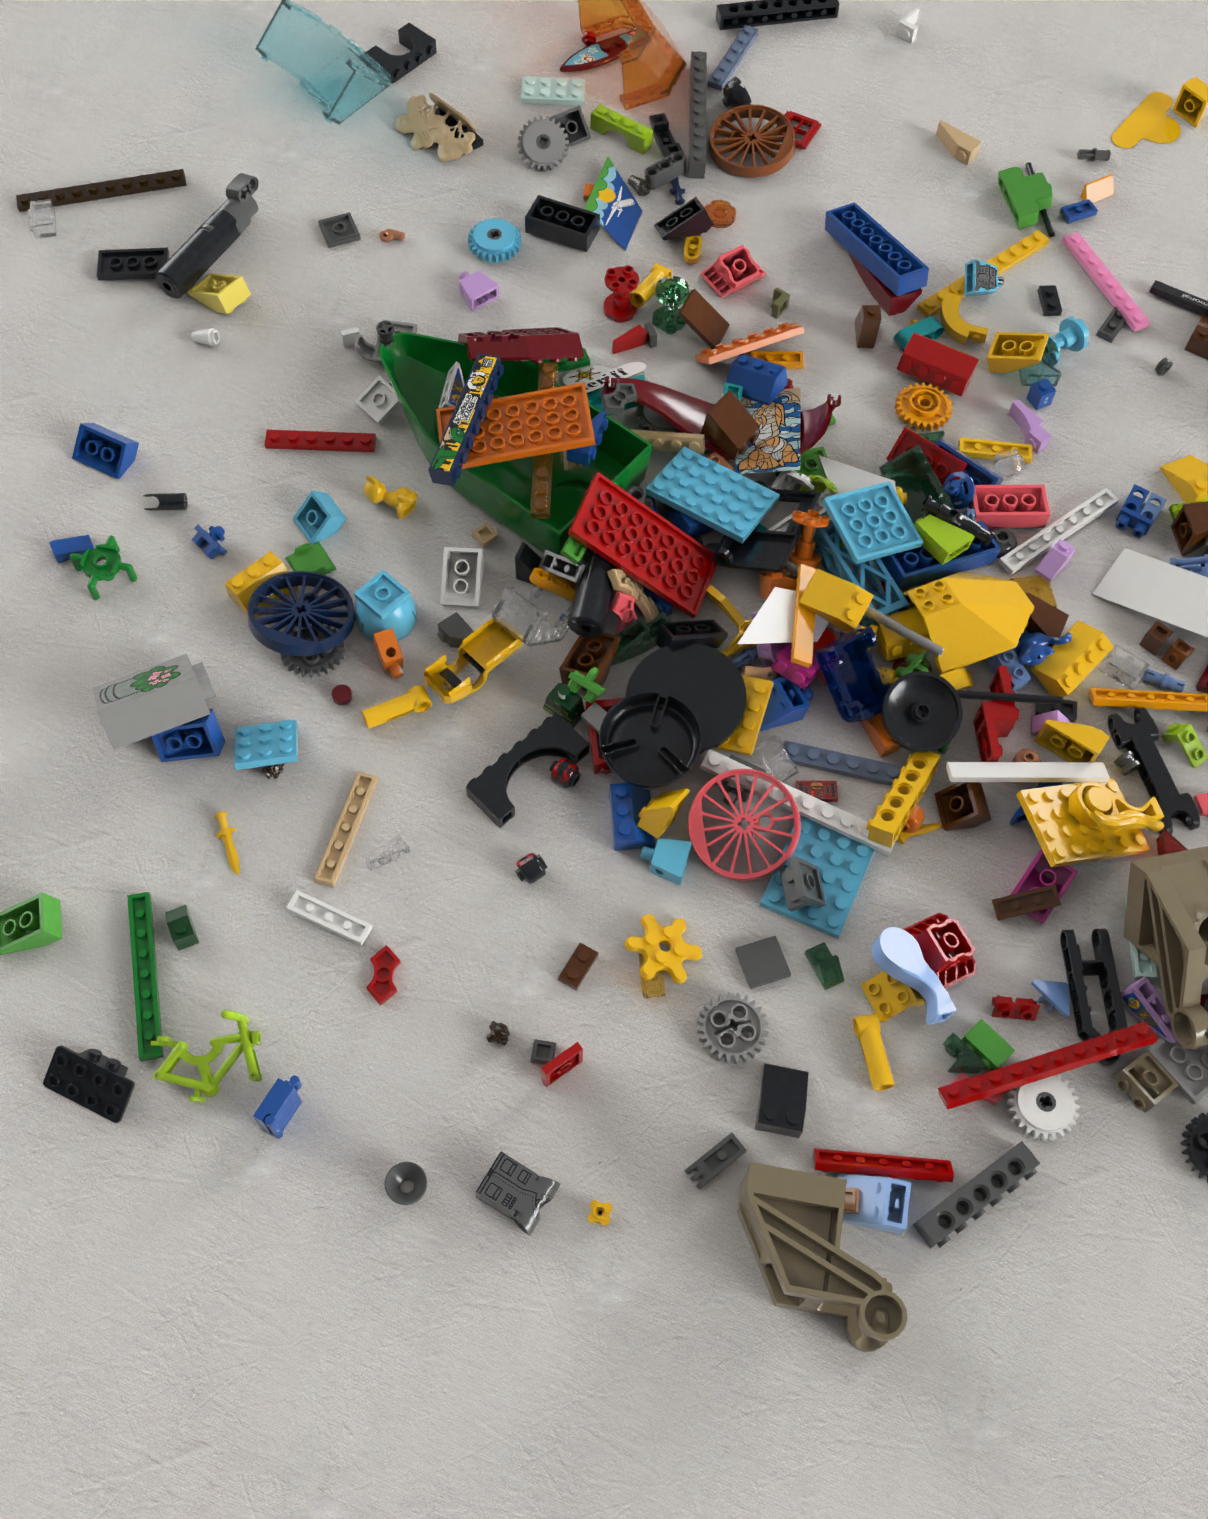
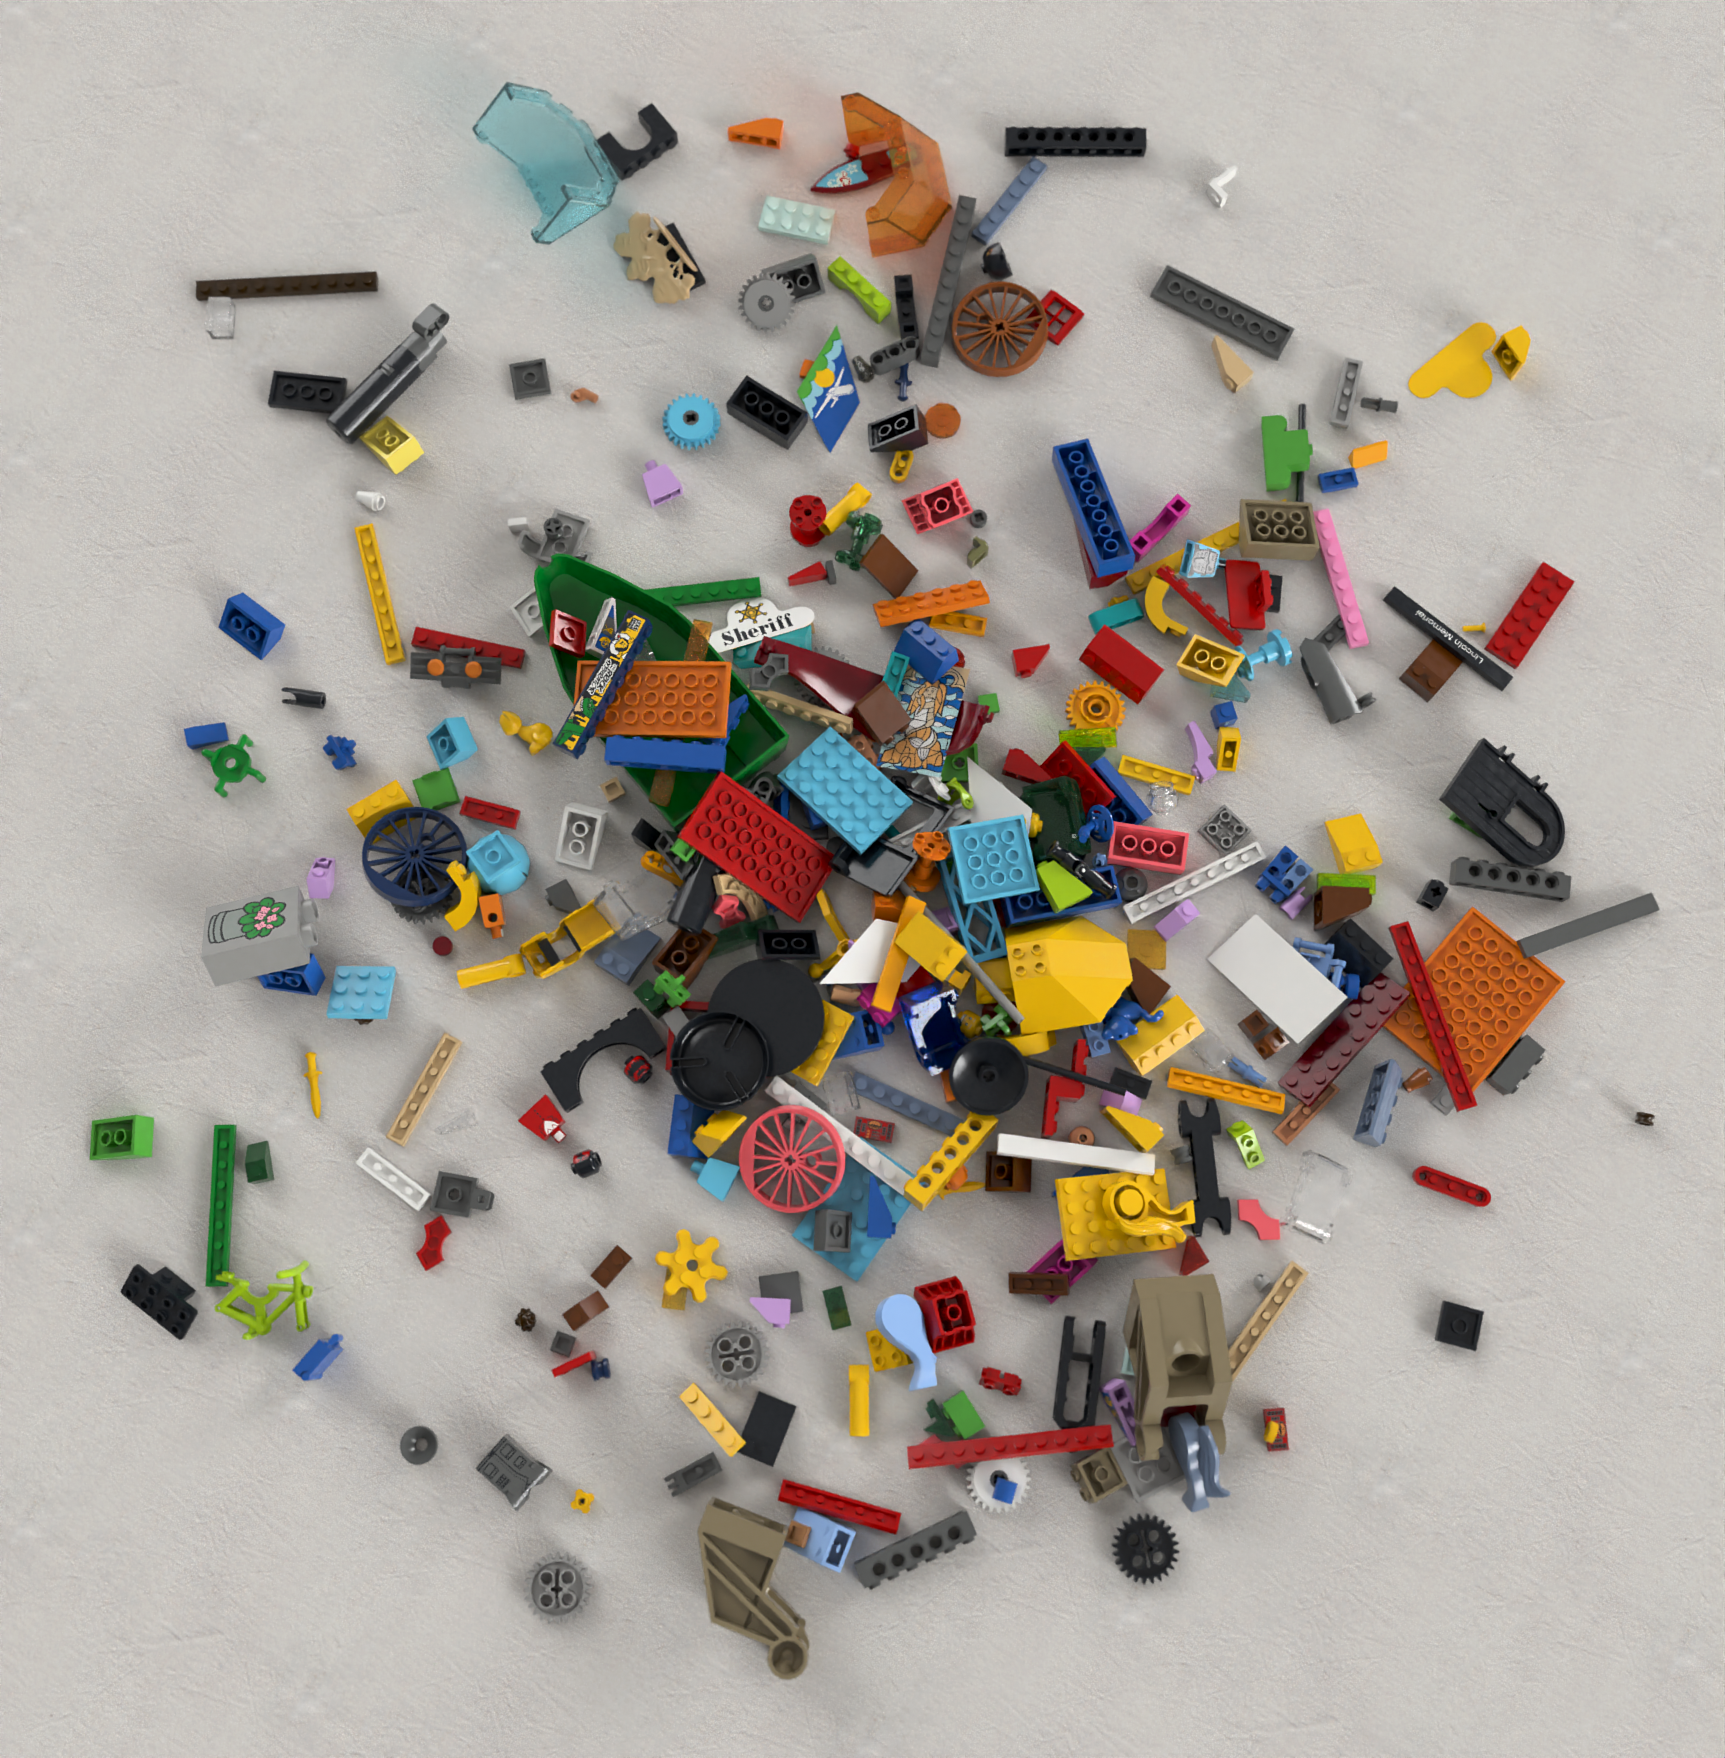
camera: 10 degrees right, 15 degrees up
(208, 650) = (321, 878): none -> lavender slope
(227, 411) = (379, 594): none -> yellow tile
(312, 459) = (451, 674): none -> dark grey piece
(364, 645) = (470, 890): none -> yellow arch
(365, 570) = (490, 812): none -> red plate
(415, 920) = (468, 1198): none -> dark grey plate
(419, 396) = (567, 633): none -> red tile
(478, 835) = (544, 1120): none -> red torso
(504, 35) = (760, 132): none -> orange slope
(525, 344) = (683, 587): dark red wedge -> none
(529, 672) = (627, 957): none -> sand blue slope
(539, 468) = (665, 755): none -> blue brick
(560, 1013) = (585, 1310): none -> reddish brown slope
(590, 1069) = (600, 1369): none -> dark blue wheel
(613, 1308) = (576, 1588): none -> light grey gear
(724, 1096) = (712, 1419): none -> yellow plate
(760, 973) = (773, 1310): none -> lavender slope
(772, 275) = (978, 524): none -> dark grey bush
(846, 861) = (879, 1216): none -> blue slope
(849, 376) = (1028, 659): none -> red slope
(867, 326) = (1060, 603): reddish brown slope -> none
(869, 458) = (1023, 768): none -> red slope
(930, 424) = (1090, 737): none -> clear neon green plate
(937, 108) = (1222, 312): none -> dark grey plate
(940, 258) = (1168, 518): none -> dark pink arch
(987, 310) = (1206, 611): none -> red plate
(1032, 300) = (1247, 594): none -> red bracket
(1041, 250) = (1277, 530): none -> dark tan slope
(1054, 419) = (1227, 748): none -> yellow slope
(1055, 993) = (1039, 1378): medium blue piece -> none
(1056, 1109) = (1004, 1490): none -> blue brick
(1063, 150) = (1346, 393): none -> light grey plate
(1072, 486) = (1224, 830): none -> light grey tile
(1119, 352) = (1328, 681): none -> dark grey panel
(1158, 534) = (1295, 903): none -> lavender piece

